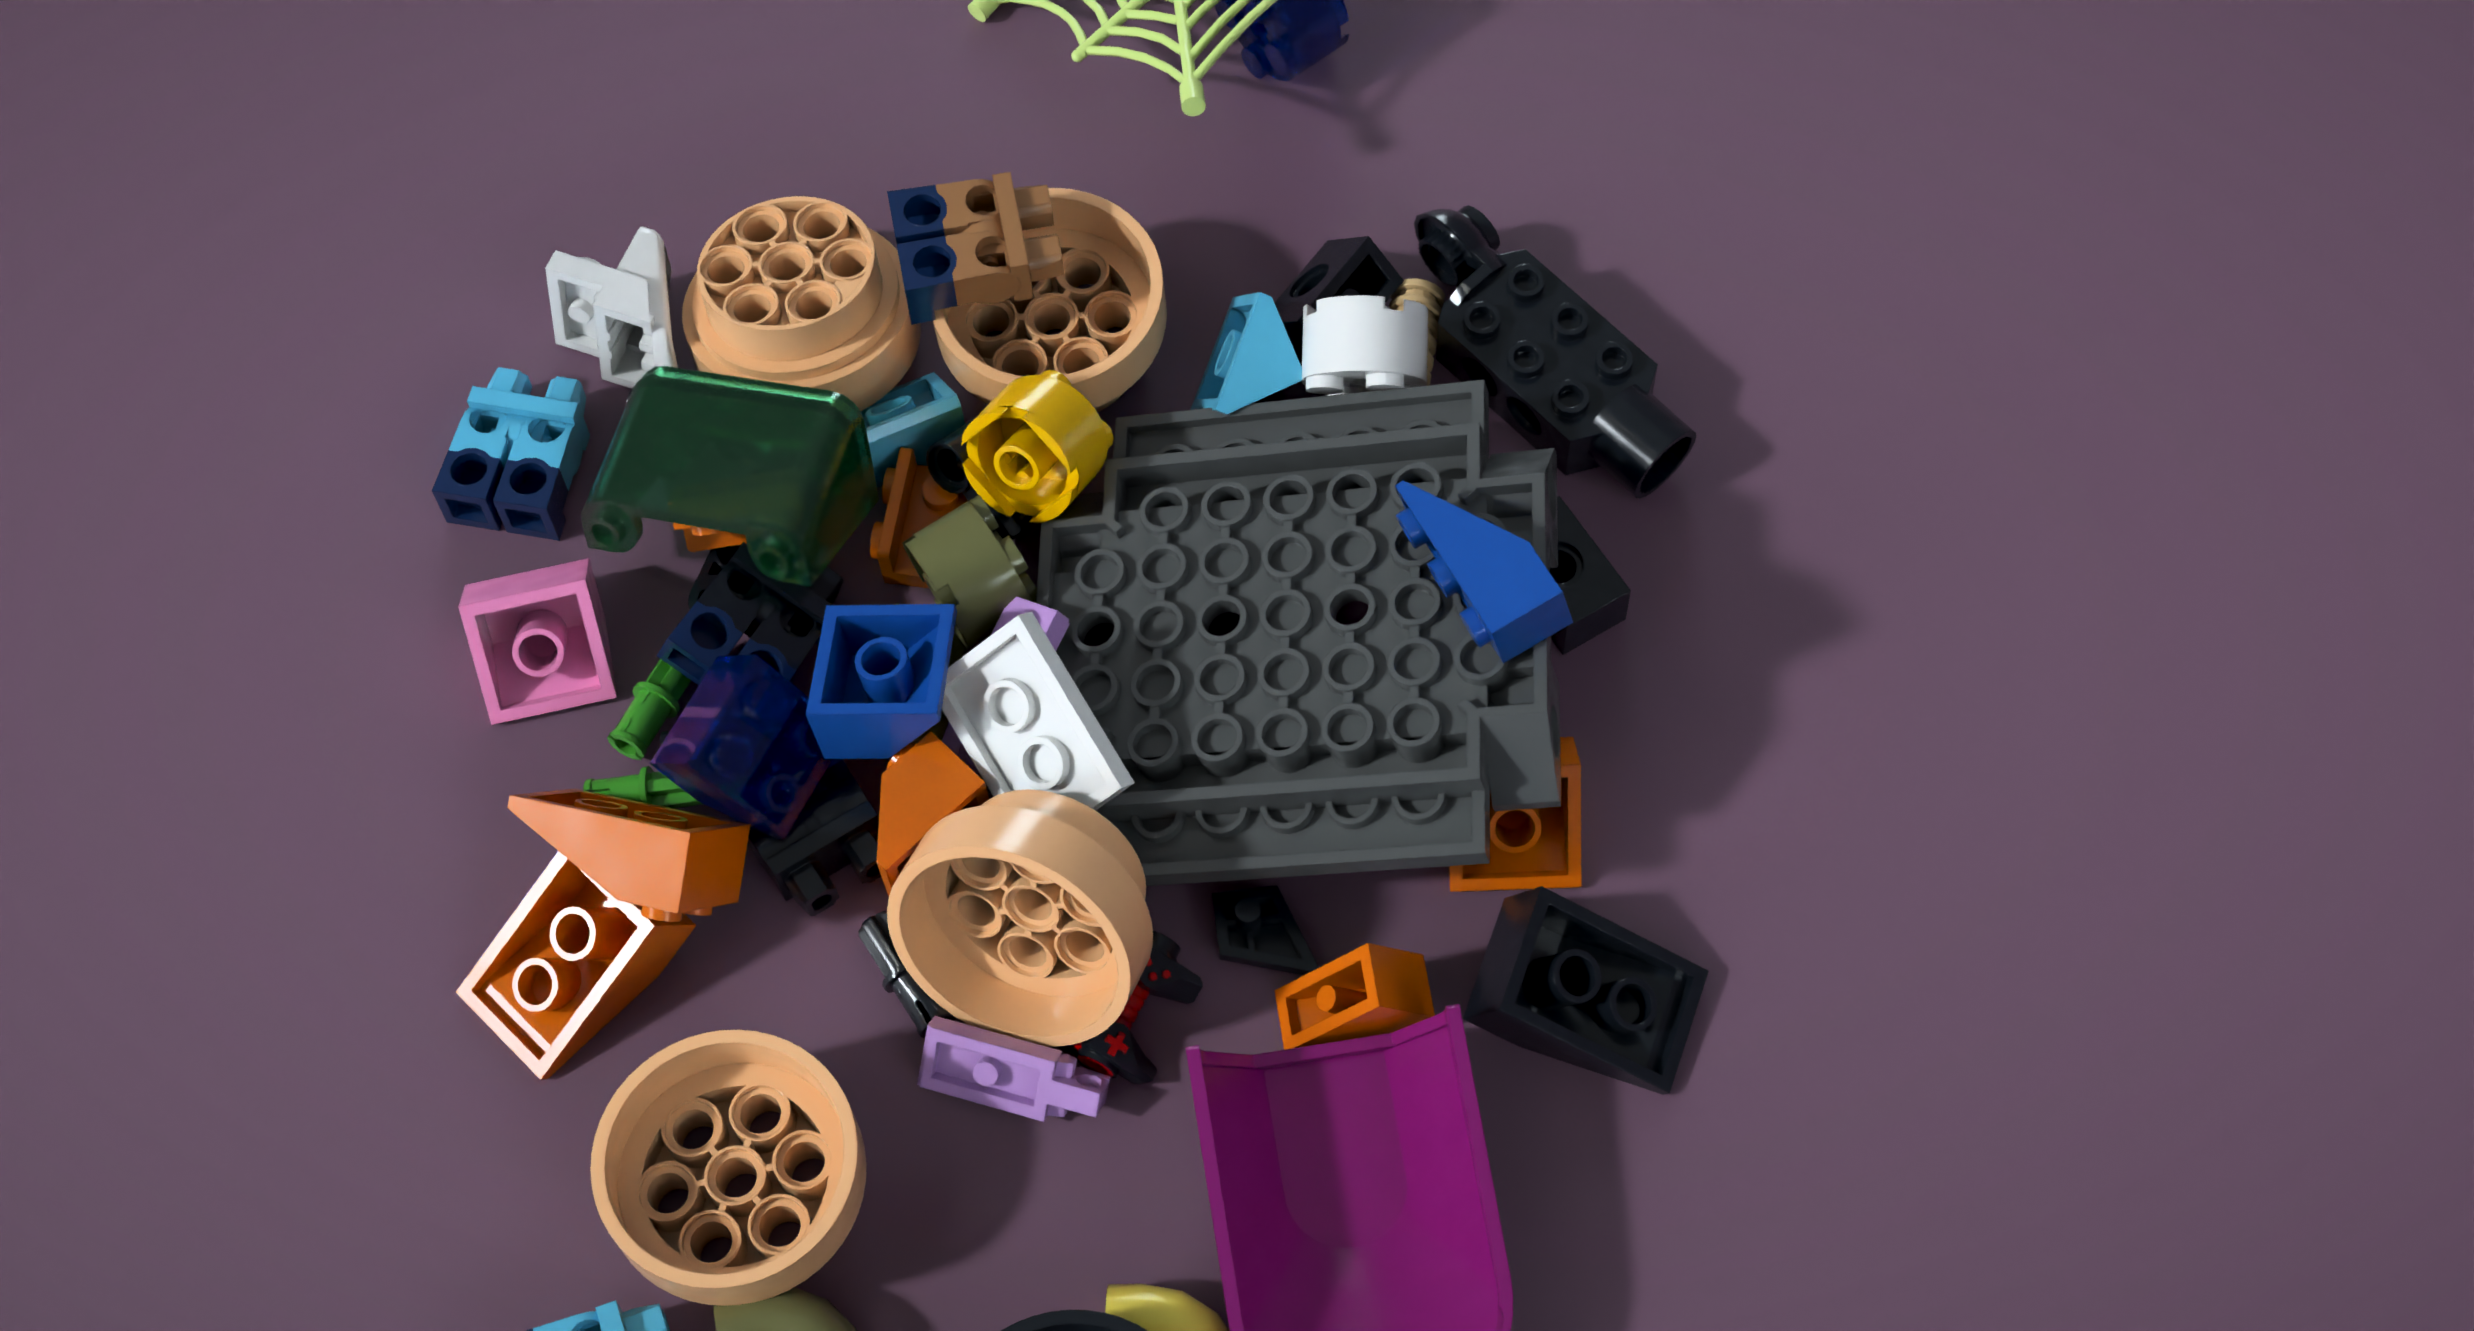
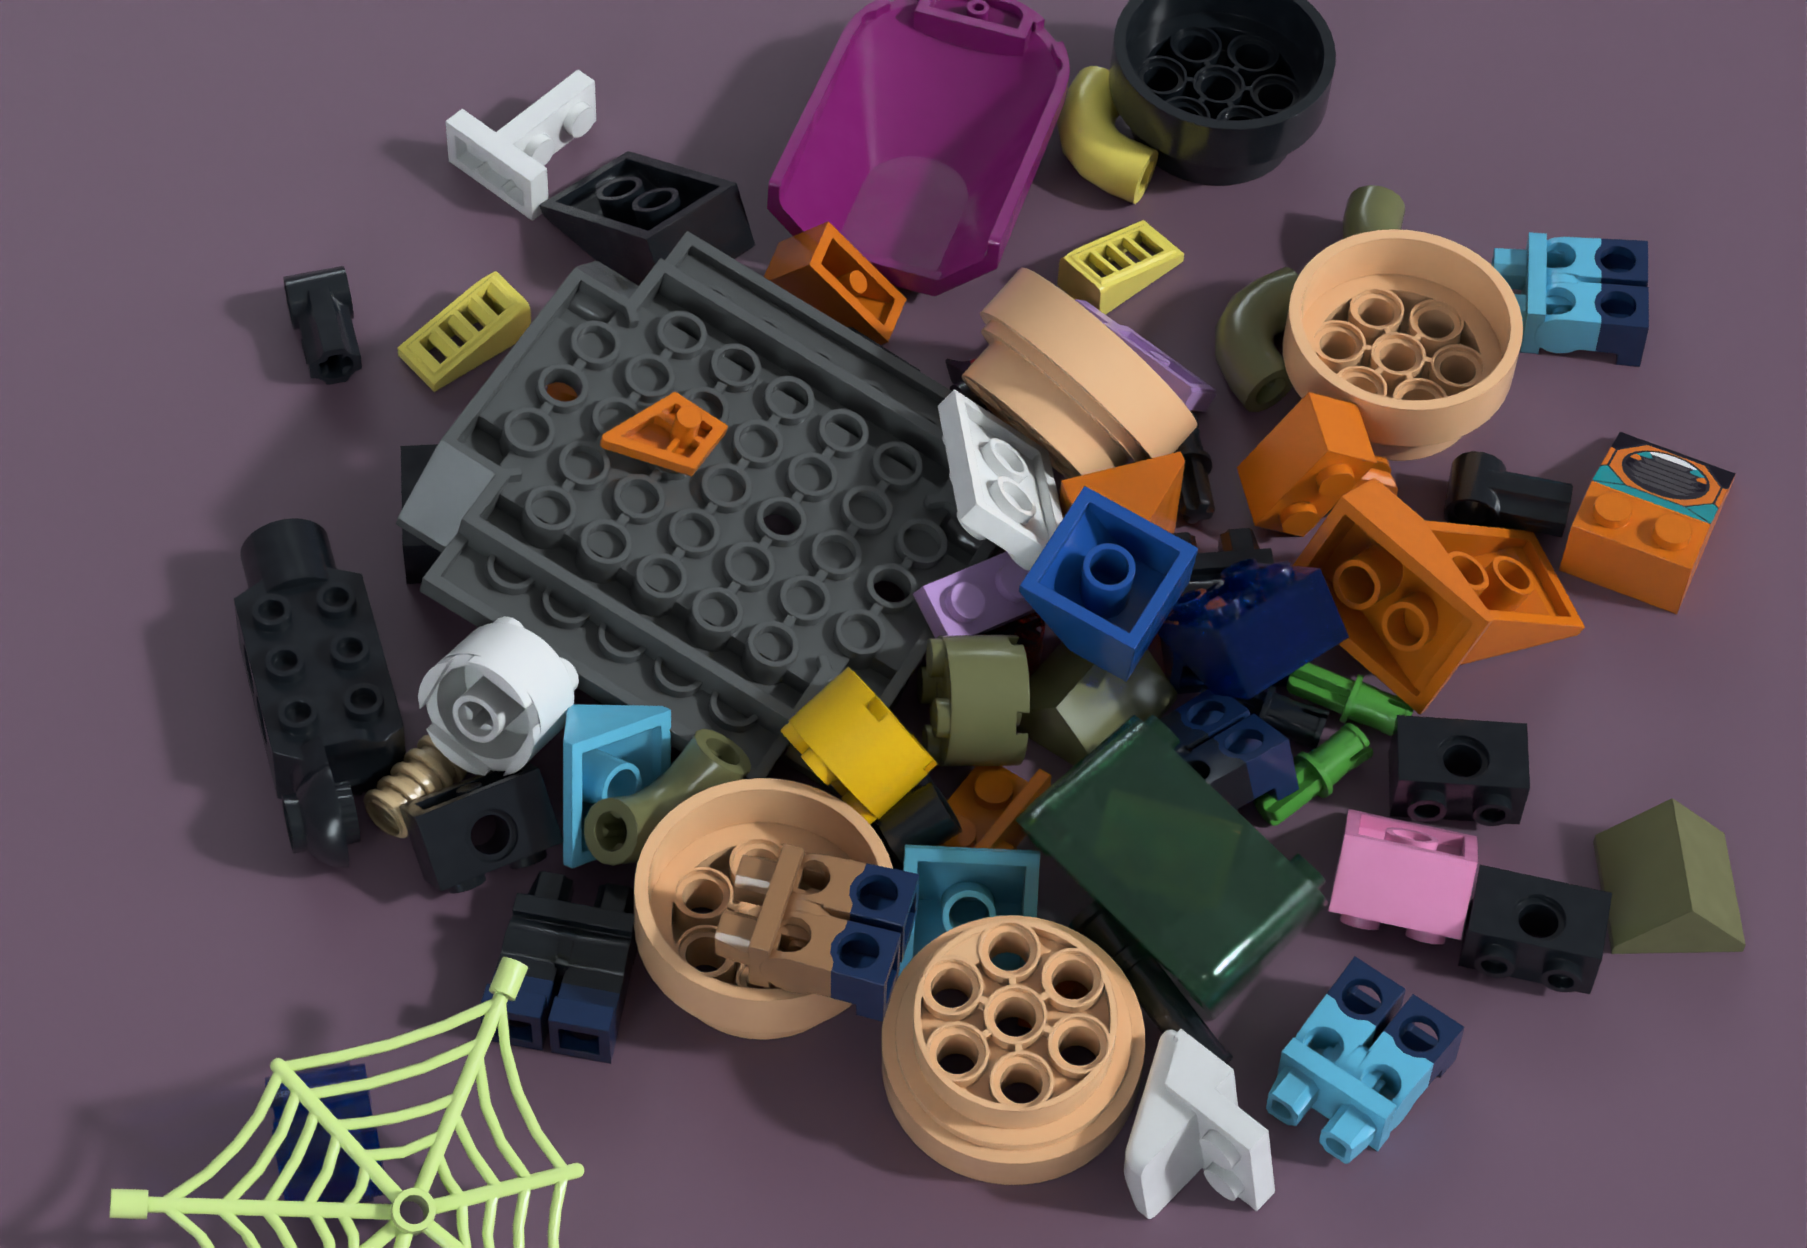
camera: 160 degrees left, 10 degrees down
(298, 746) = (1668, 884): none -> olive slope
(378, 661) = (1564, 914): none -> black brick
(421, 1143) = (1646, 522): none -> orange slope
(485, 746) = (1487, 754): none -> black brick
(568, 1086) = (1488, 496): none -> black piece
(768, 982) = (1309, 465): none -> orange brick
(910, 1159) = (1247, 337): none -> olive cylinder
(1108, 1142) = (1080, 267): none -> light yellow slope
(1181, 358) = (621, 825): none -> olive cylinder
(1213, 253) = (575, 948): none -> black hips
(1355, 599) = (668, 435): none -> orange piece
(1494, 572) = (549, 366): blue slope -> none
(1657, 826) = (490, 303): none -> light yellow slope
(1769, 992) = (515, 156): none -> white bracket
(1820, 734) = (324, 313): none -> black piece

